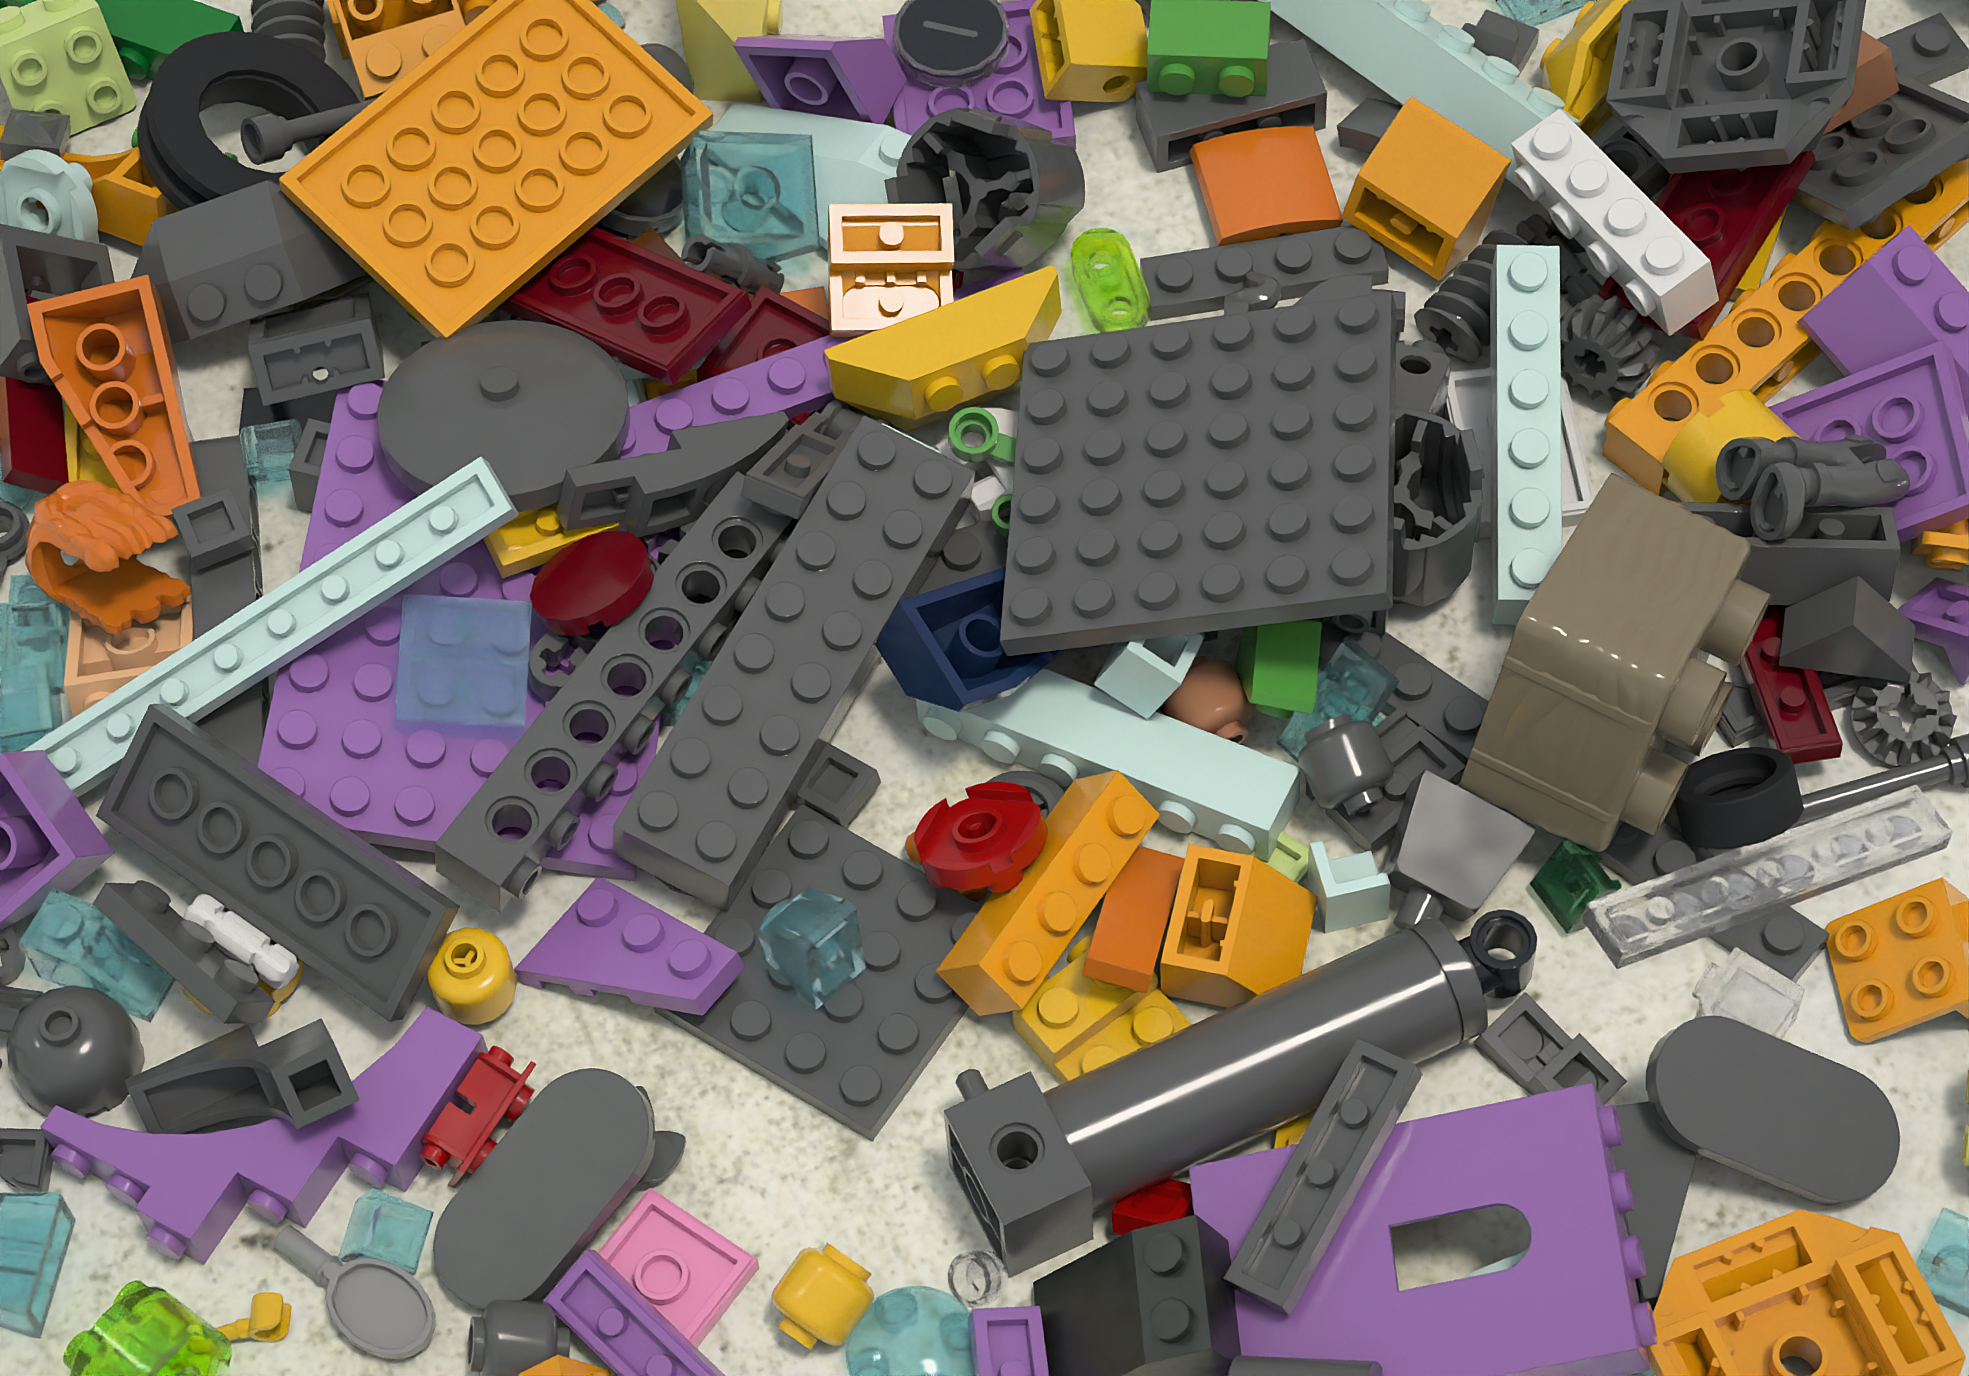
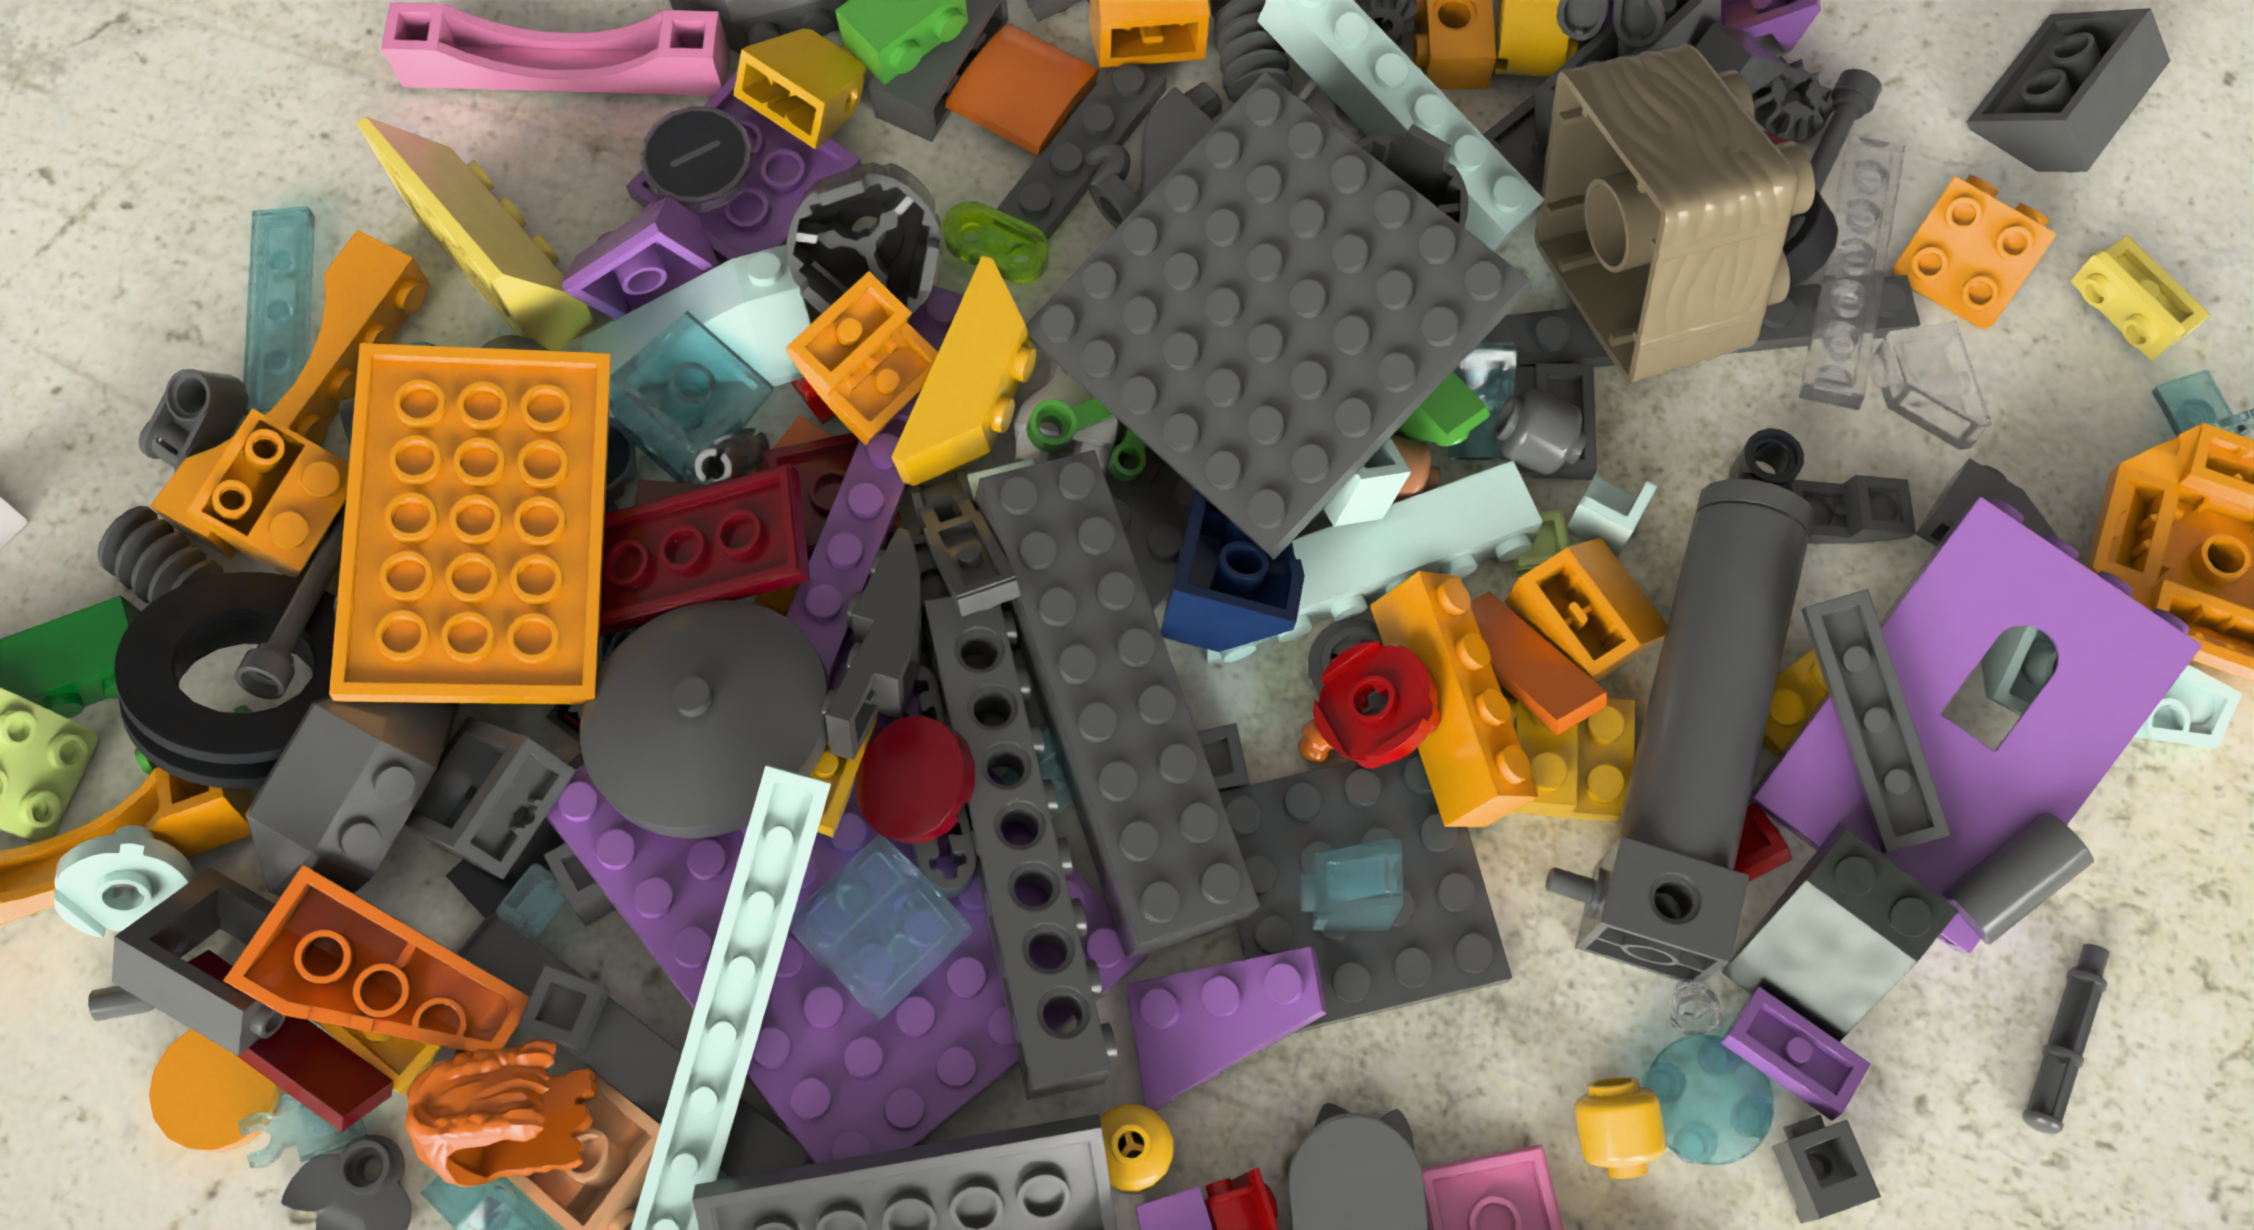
camera: 50 degrees left, 10 degrees up
(34, 131) = (47, 835): dark grey tile -> none
(1450, 850) = (1655, 431): torso -> none
(1571, 881) = (1740, 383): clear green tile -> none
(1773, 1110) = (2024, 416): dark grey tile -> none

